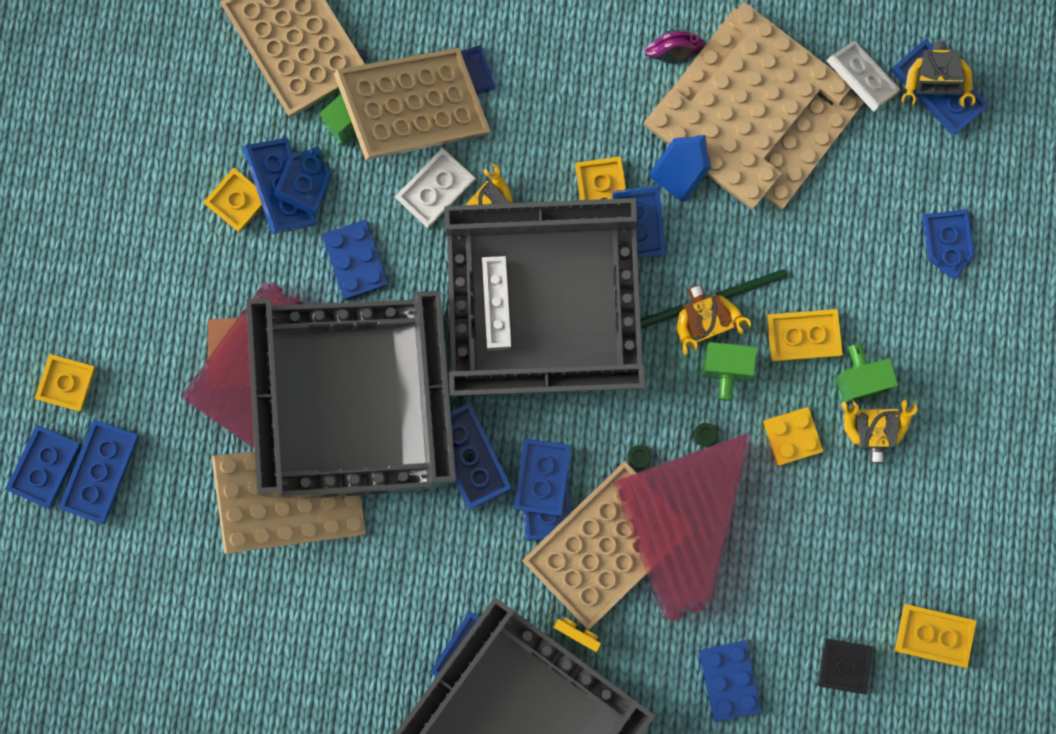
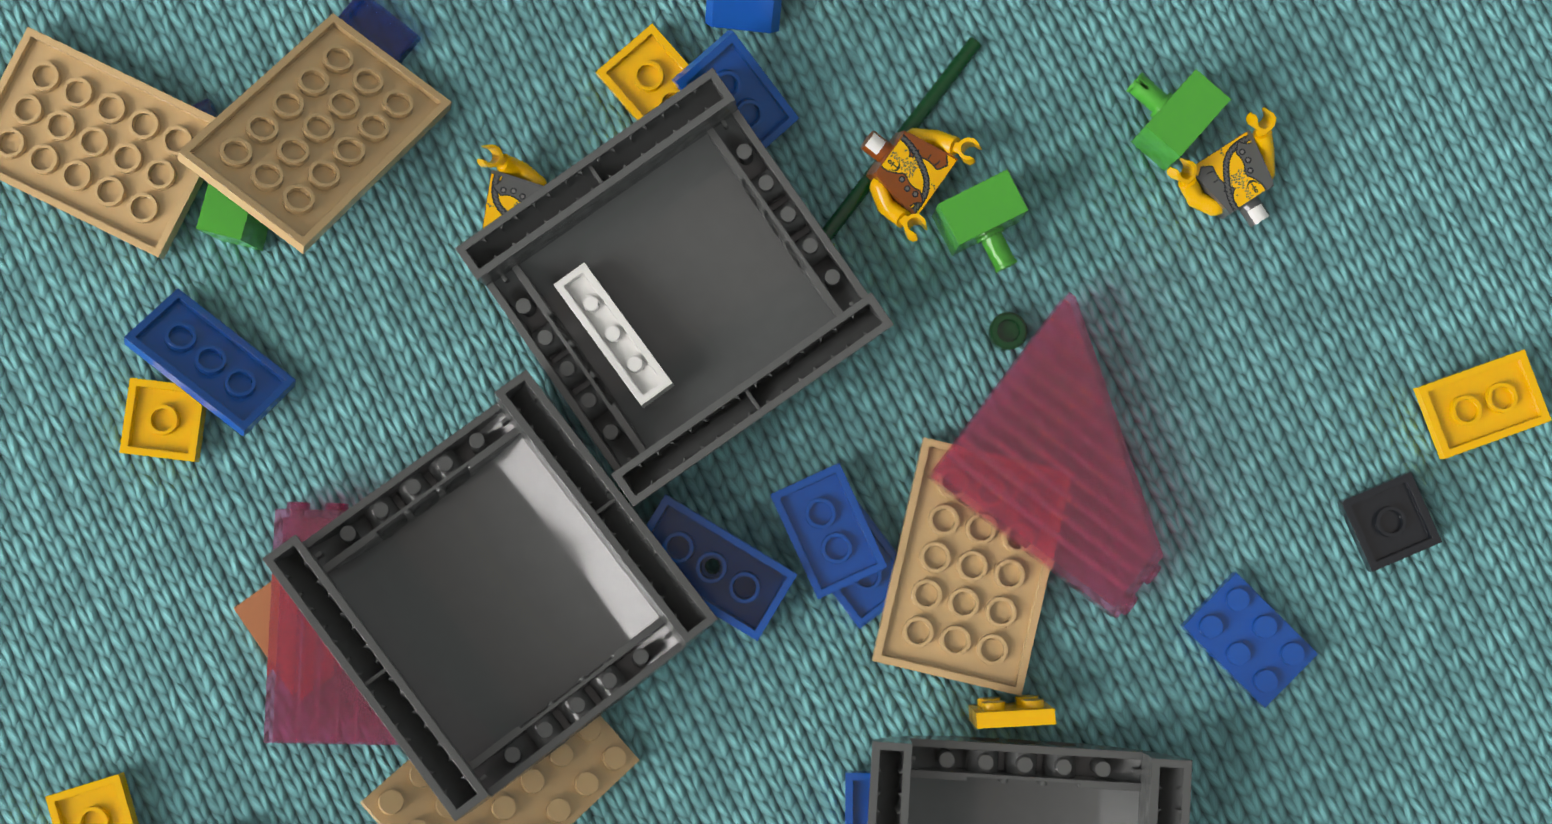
camera: 30 degrees left, 5 degrees up
(304, 180) = (239, 333): blue tile -> none
(355, 260) = (381, 397): blue plate -> none
(435, 186) = (426, 227): white tile -> none
(639, 456) = (938, 418): dark green tile -> none
(793, 436) = (1126, 258): yellow plate -> none
(804, 335) = (1055, 111): yellow plate -> none

